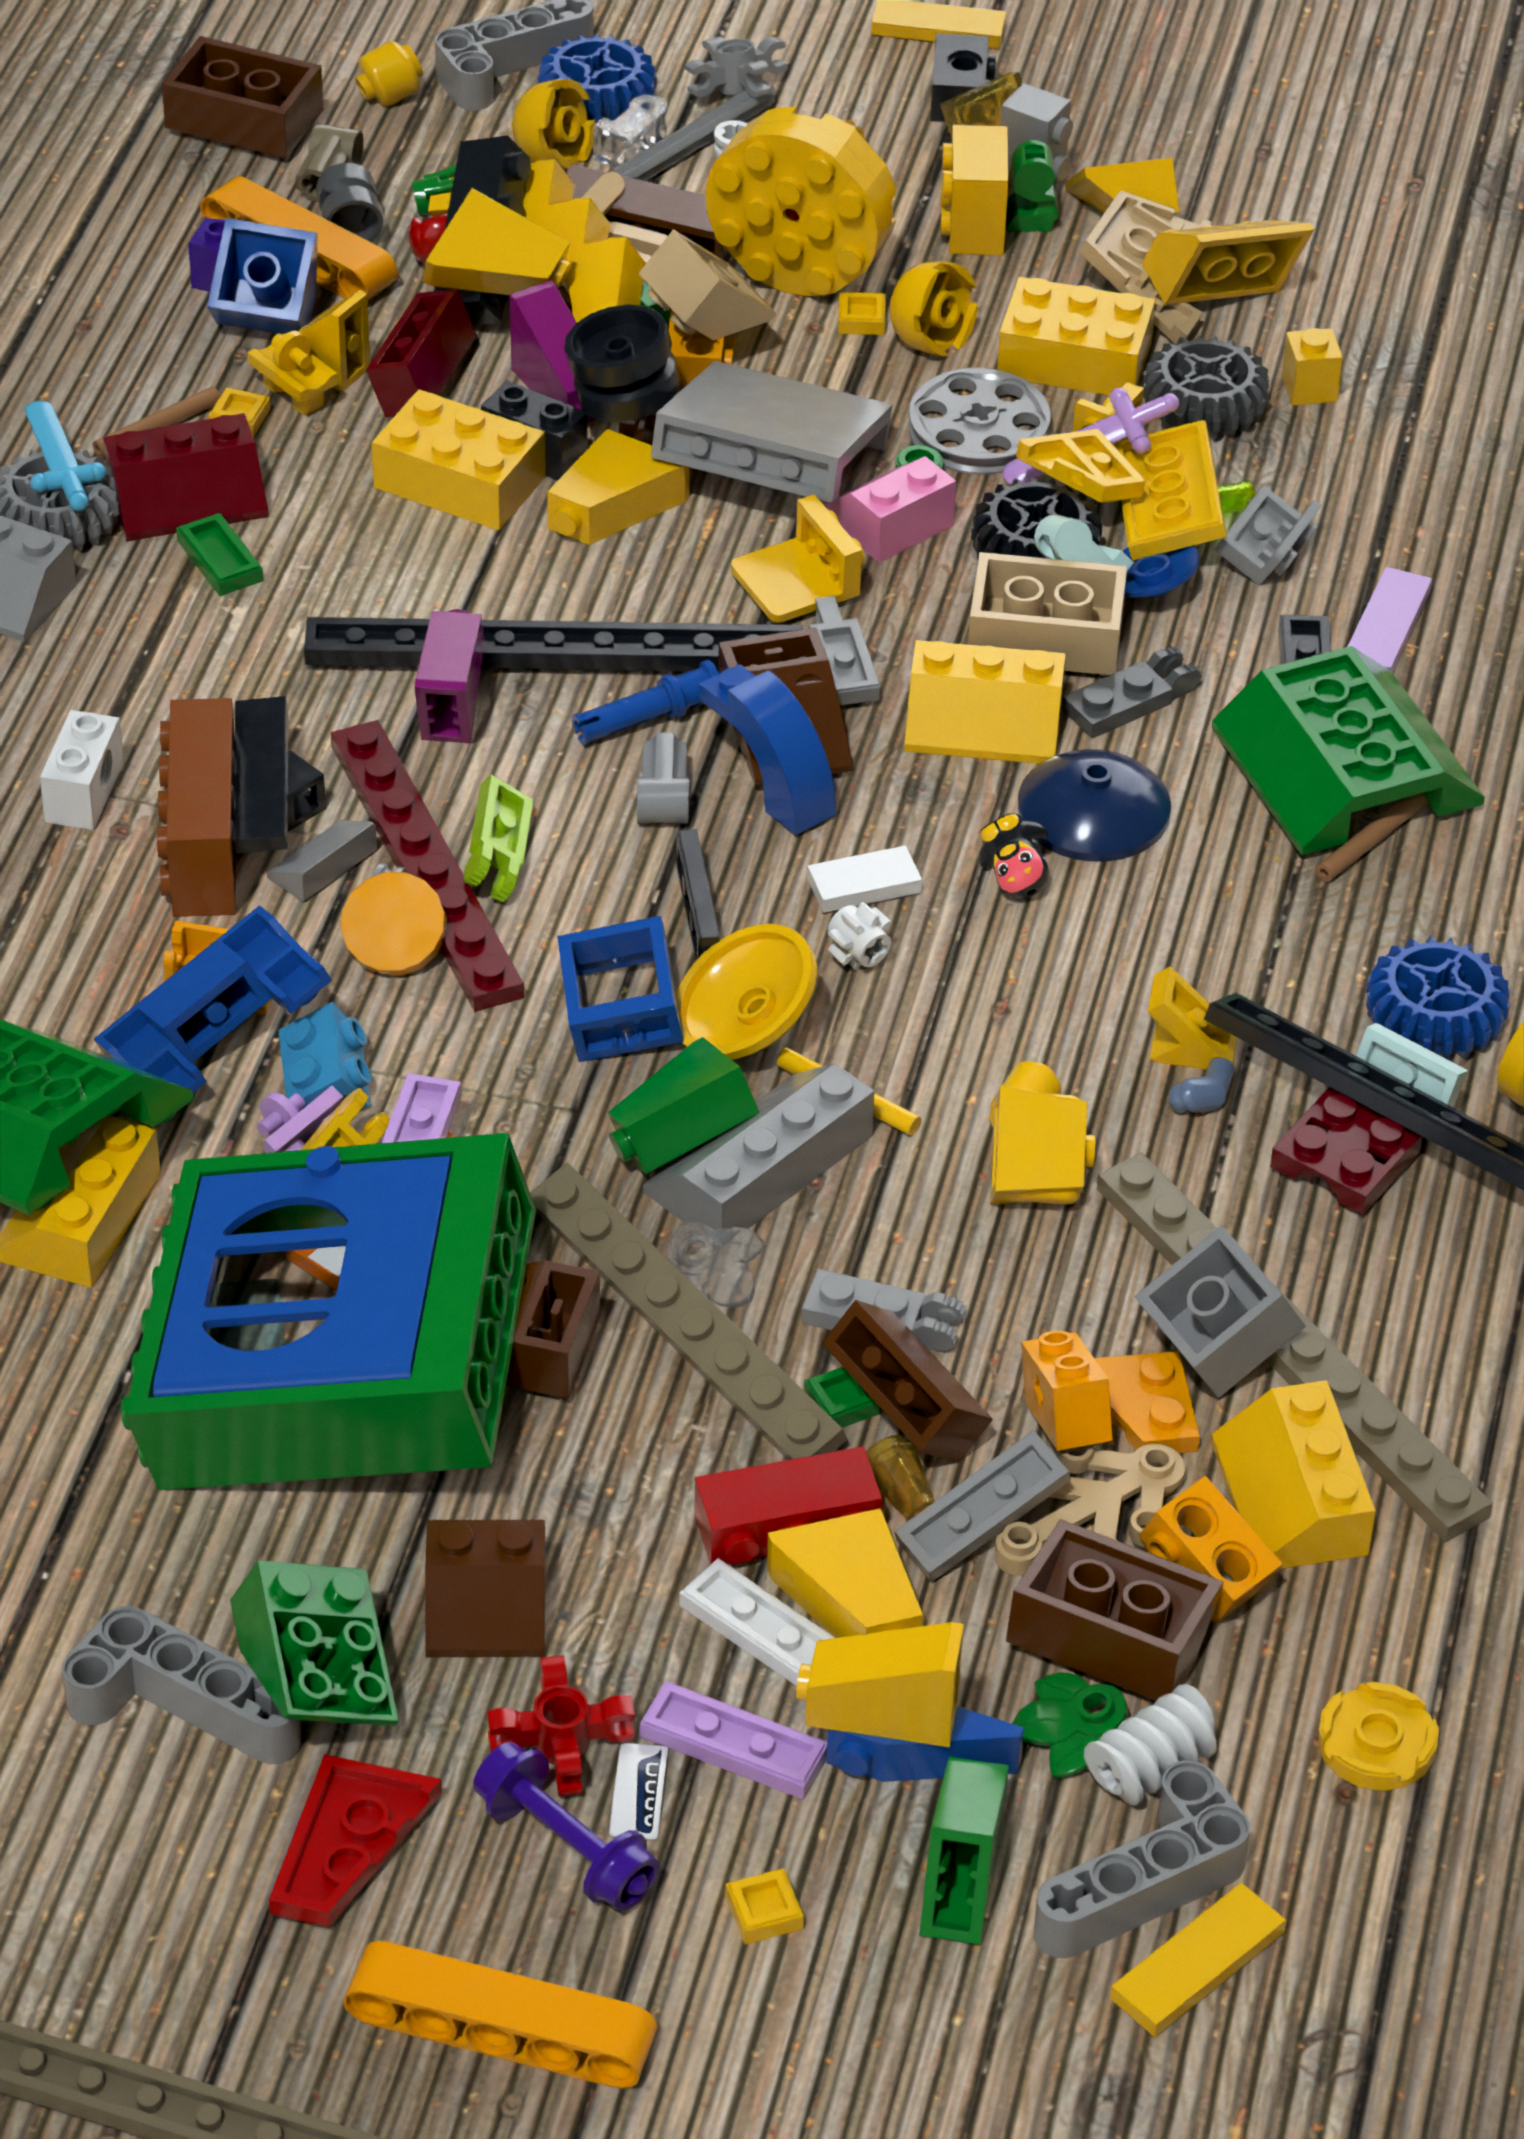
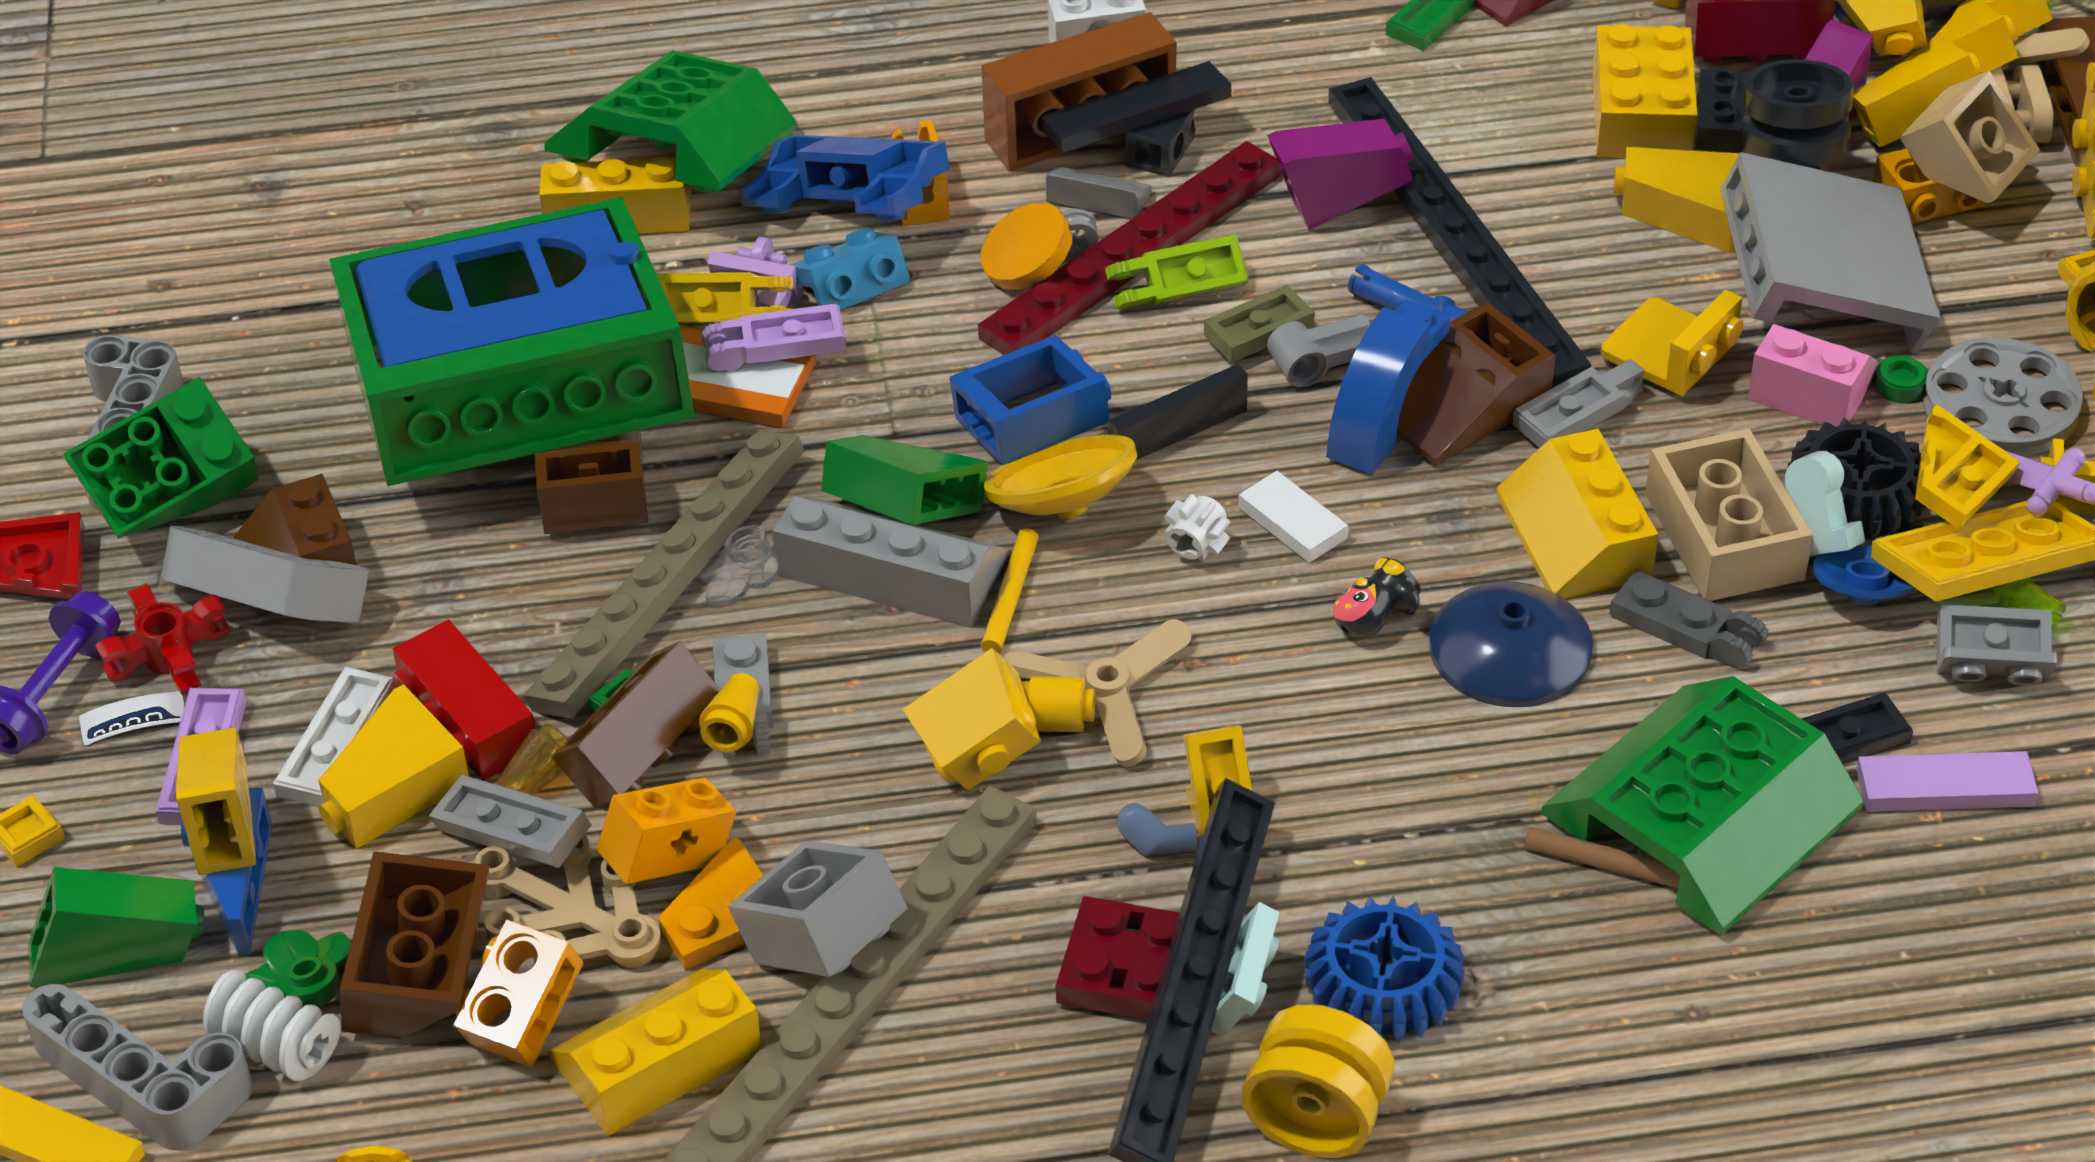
camera: 70 degrees right, 0 degrees up
(532, 1619) = (264, 576): none -> light grey beam
(601, 811) = (1249, 325): none -> olive plate
(943, 1303) = (730, 716): none -> yellow cone
(1002, 1056) = (1112, 682): none -> tan piece

